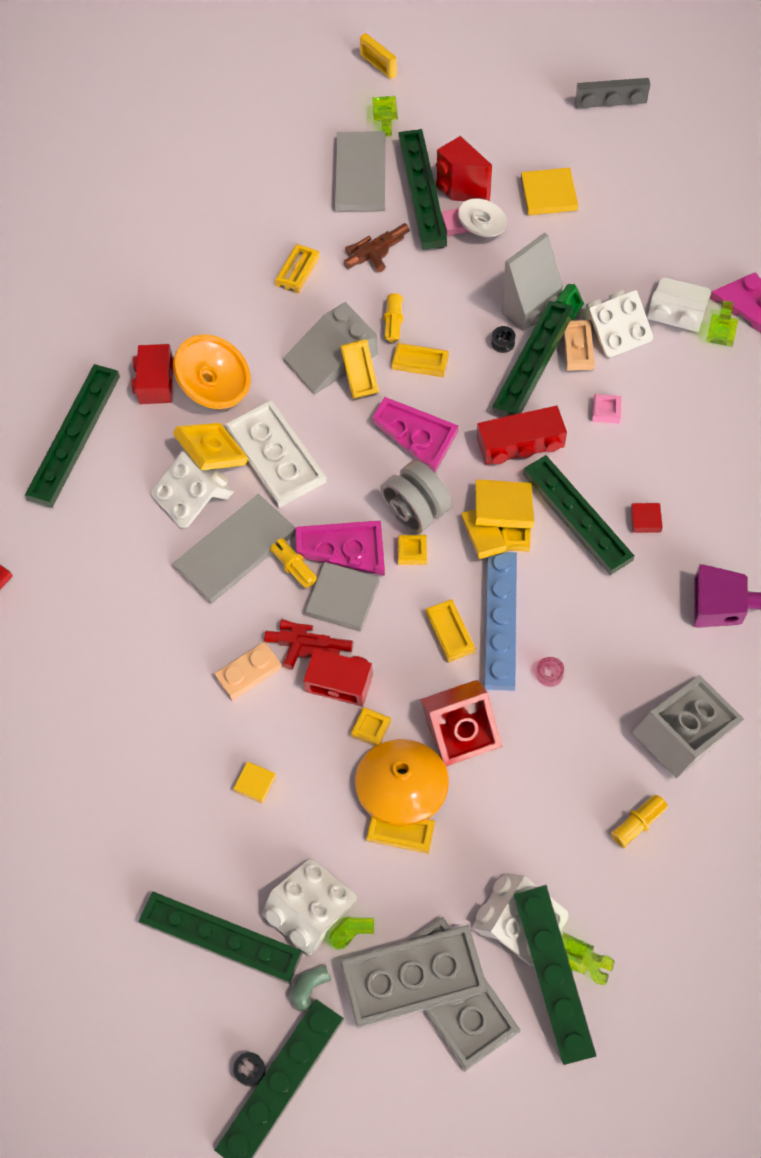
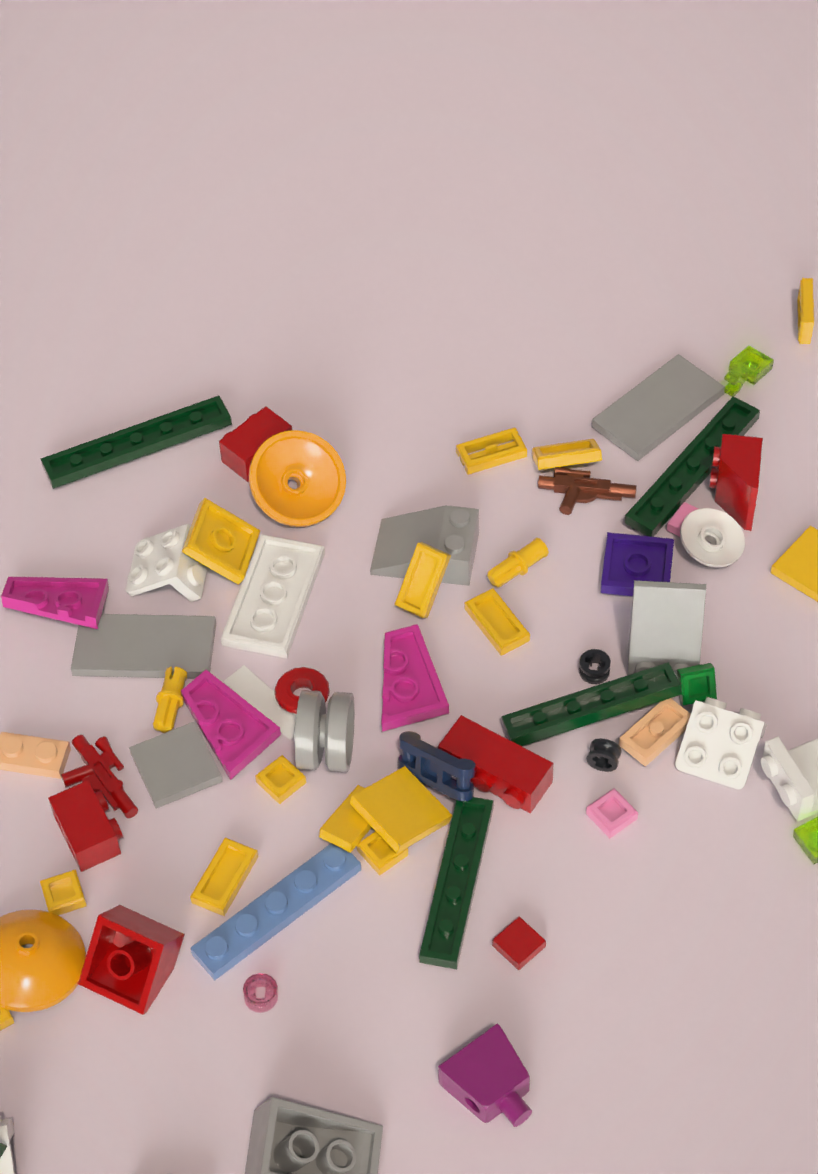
camera: 45 degrees right, 10 degrees down
(148, 565) = (62, 599): none -> dark pink wing
(345, 235) = (566, 454): none -> yellow tile
(346, 514) = (262, 698): none -> white sticker
(362, 480) = (295, 679): none -> red piece
(460, 266) = (635, 559): none -> dark purple plate
(497, 463) = (436, 767): none -> dark blue plate
(569, 380) = (604, 755): none -> black bush

